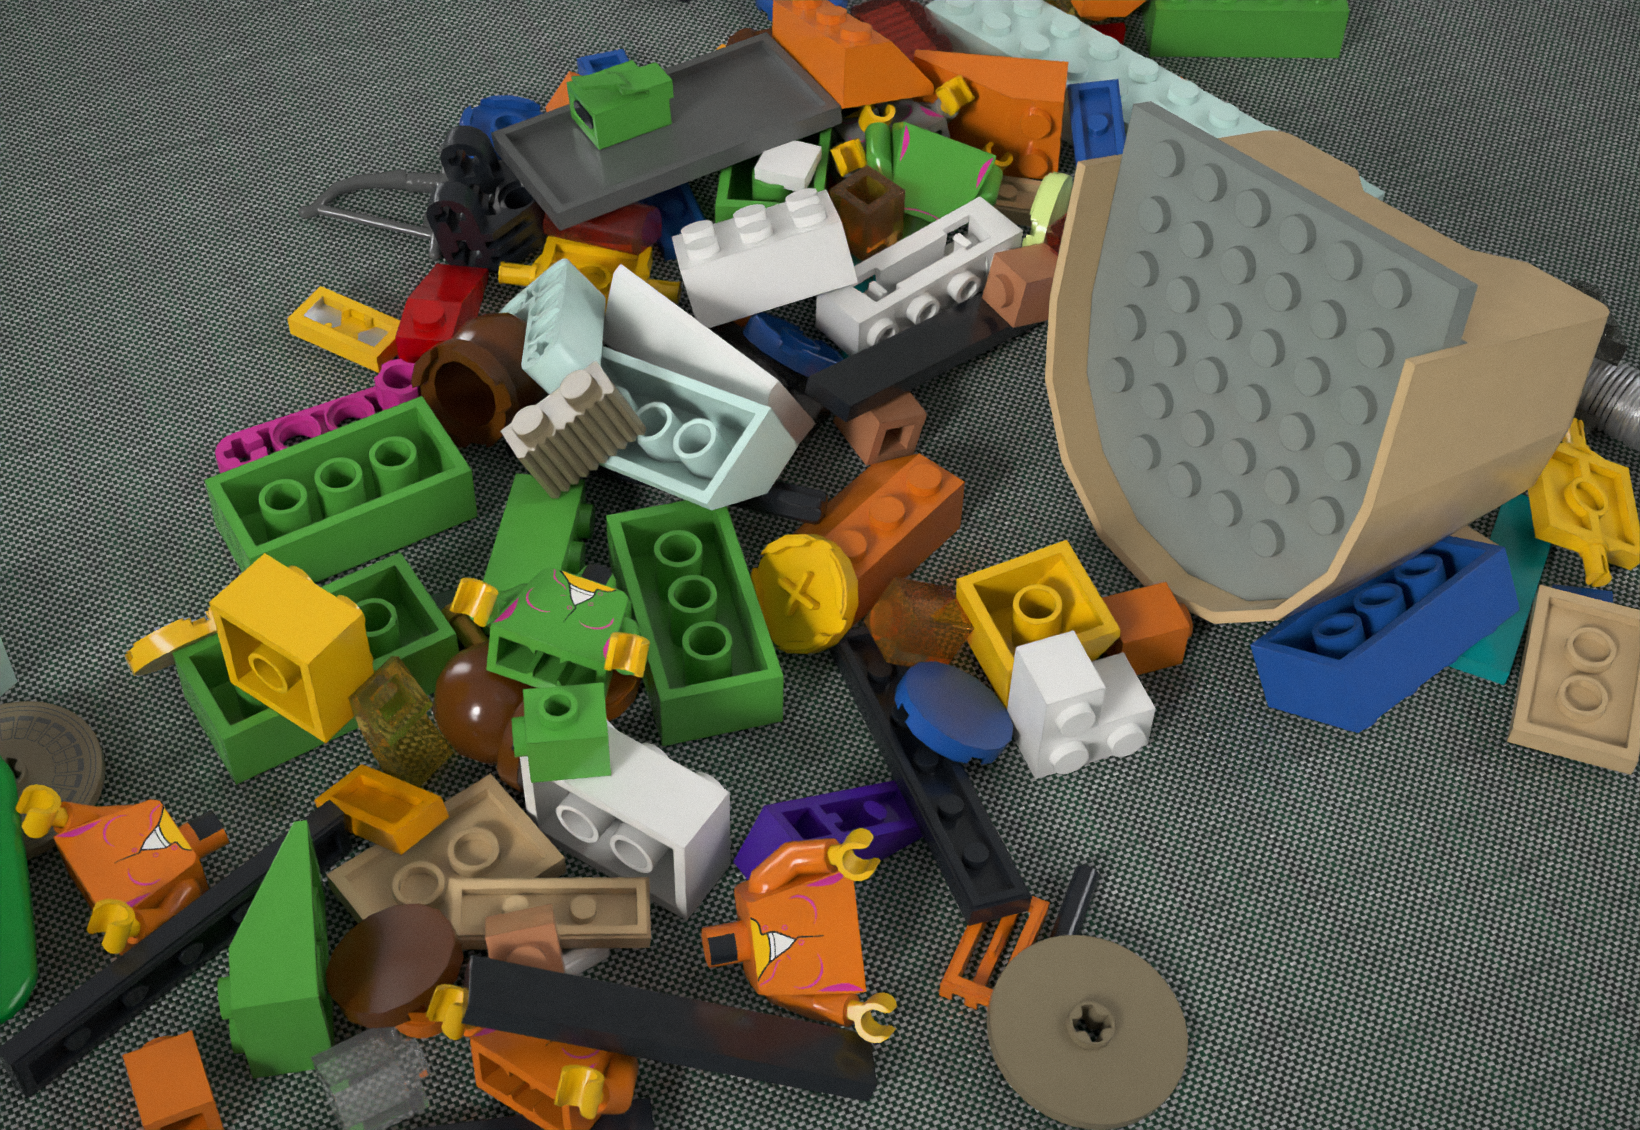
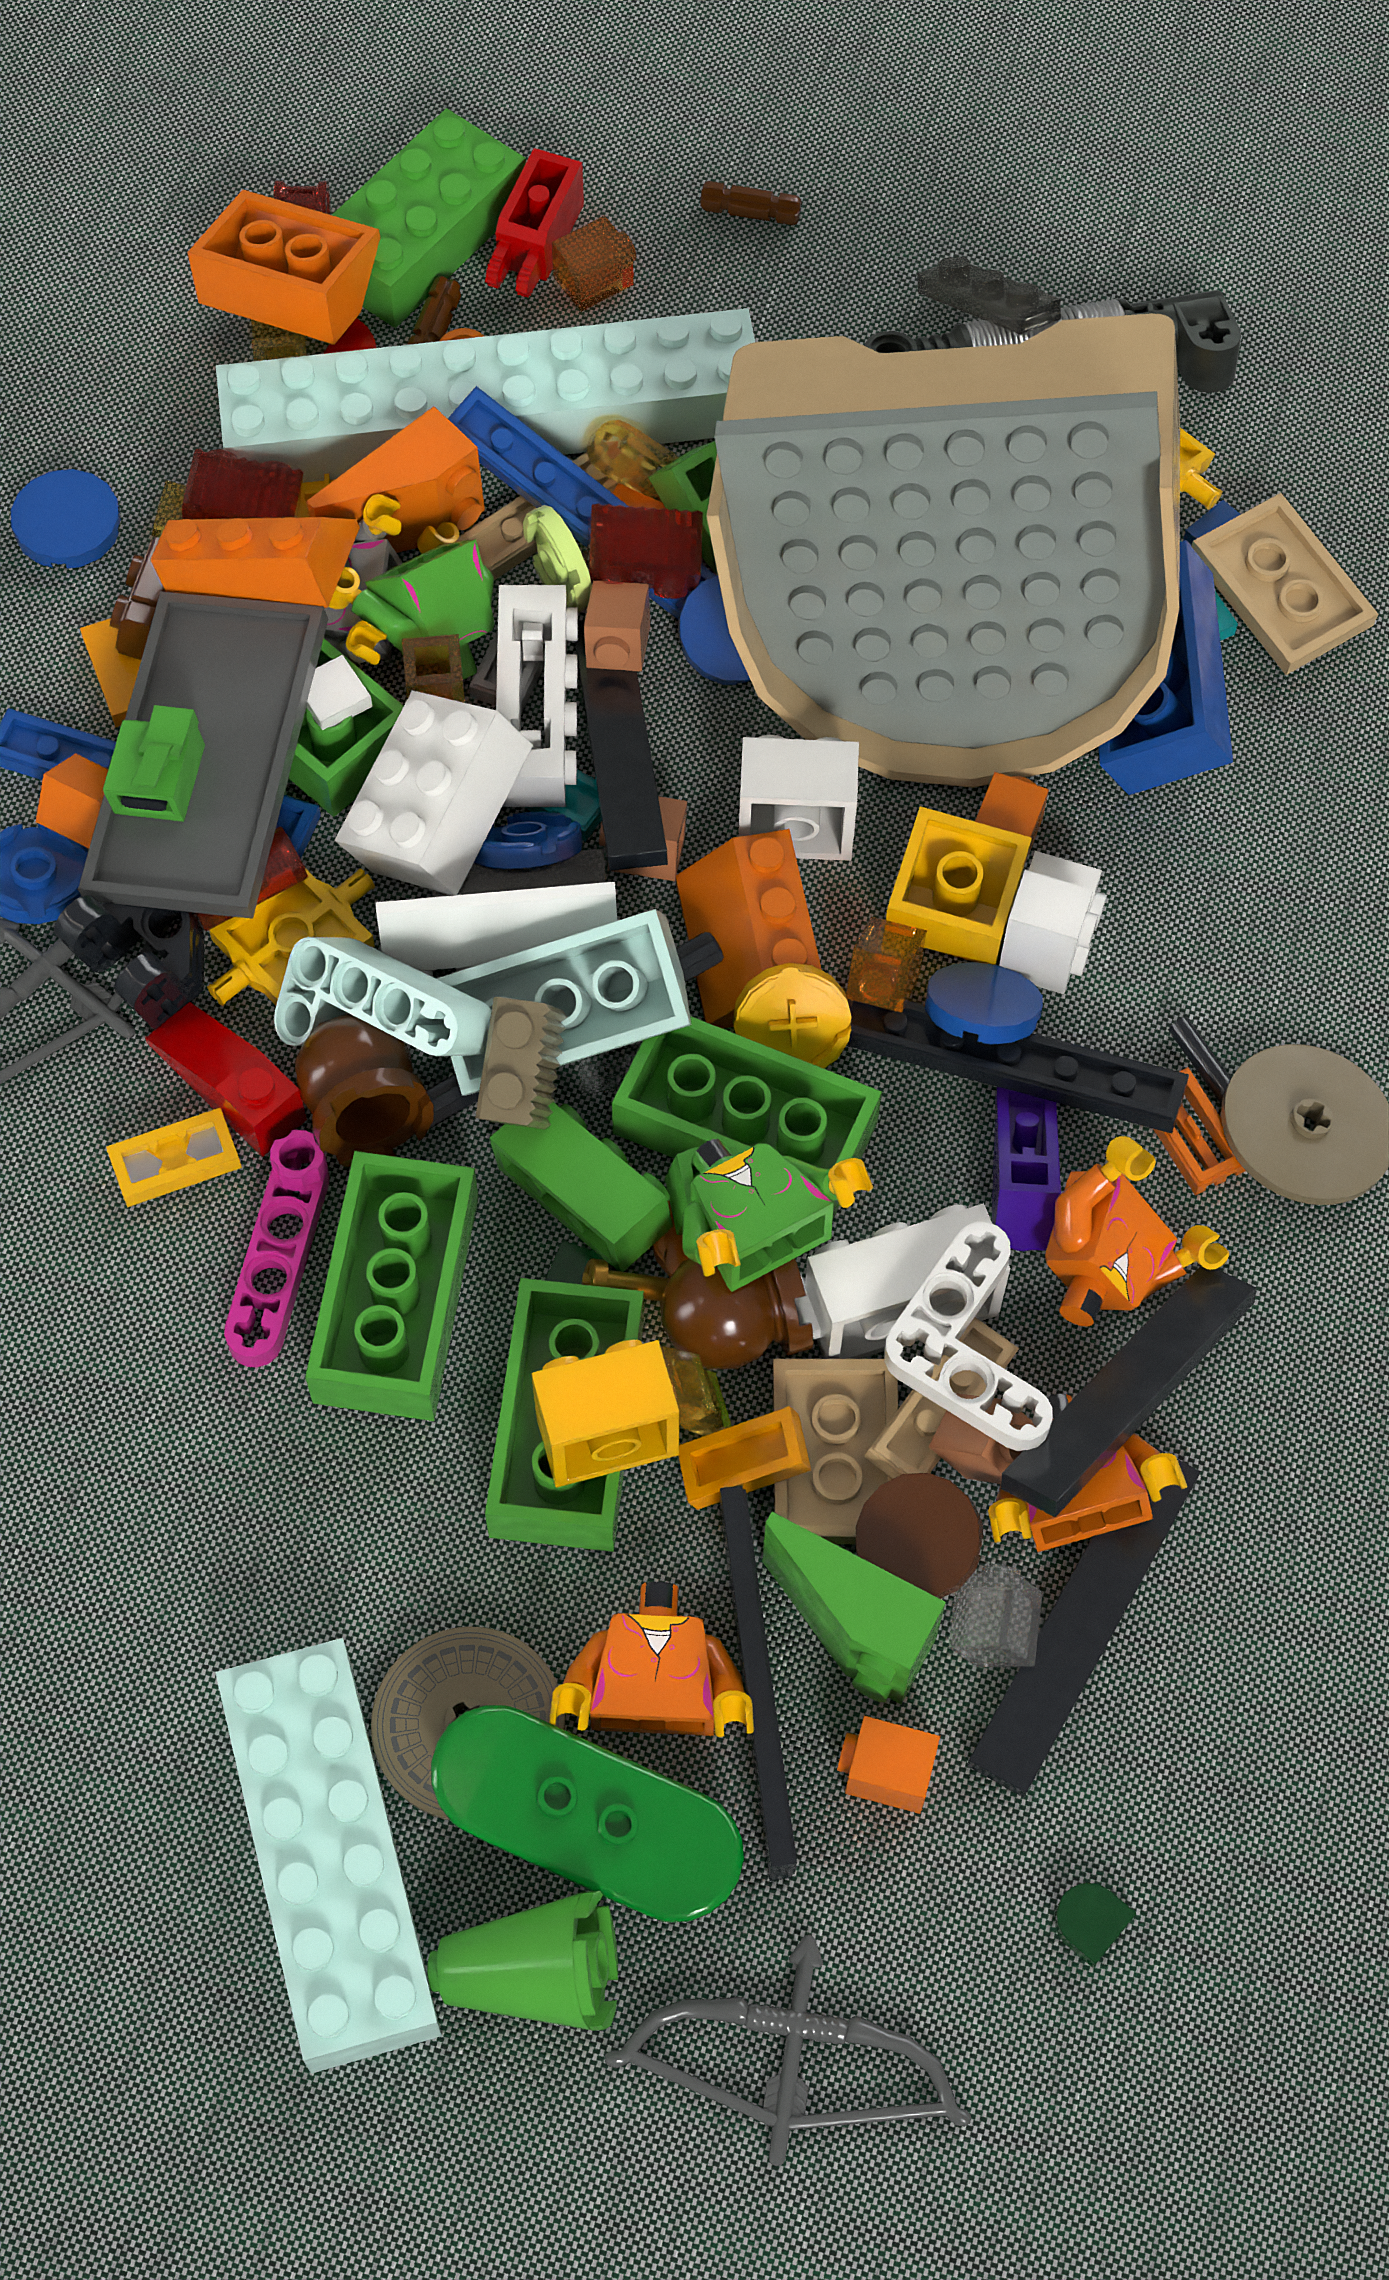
camera: 50 degrees left, 15 degrees up
(156, 649) = (457, 1496): yellow tile -> none
(563, 732) = (857, 1275): bright green brick -> none
(567, 832) = (941, 1338): none -> white beam
(1009, 472) = (801, 789): none -> white brick
(1184, 62) = (436, 311): none -> reddish brown axle
(1312, 55) = (535, 215): none -> red hinge
(1326, 108) = (593, 262): none -> clear orange brick
(1492, 161) = (750, 203): none -> reddish brown axle

